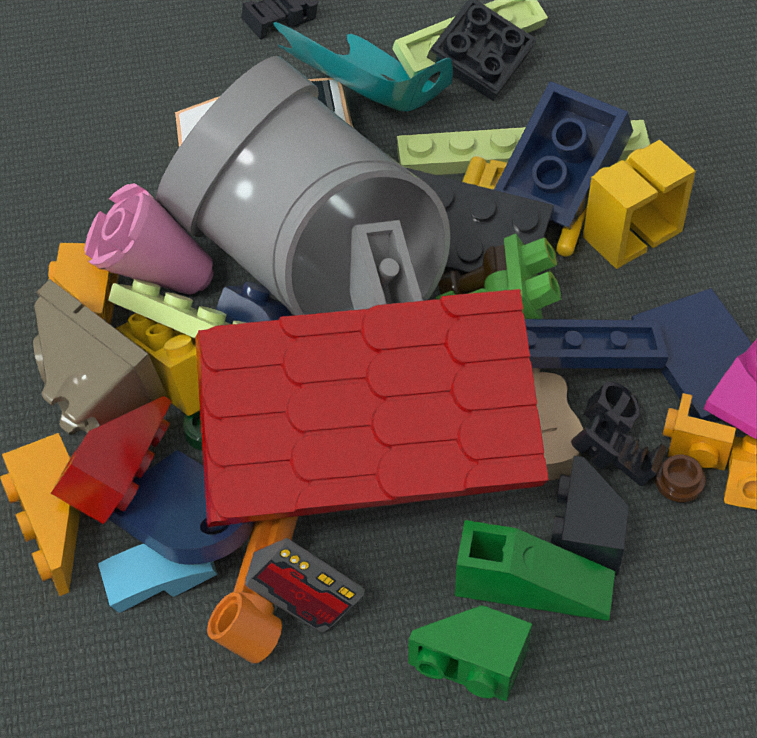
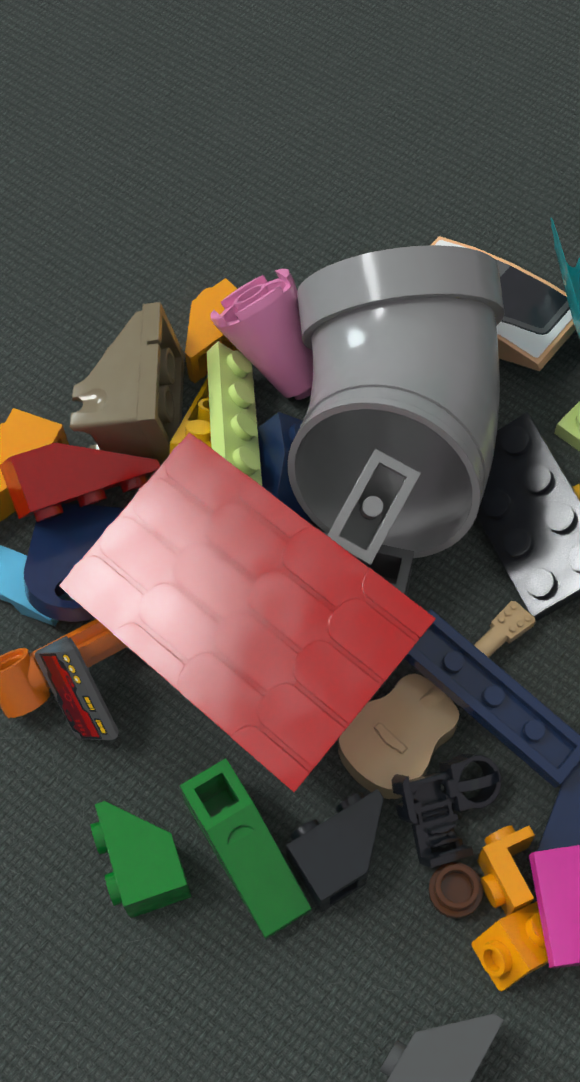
camera: 50 degrees right, 10 degrees up
(511, 268) = (497, 610): bright green hips -> none

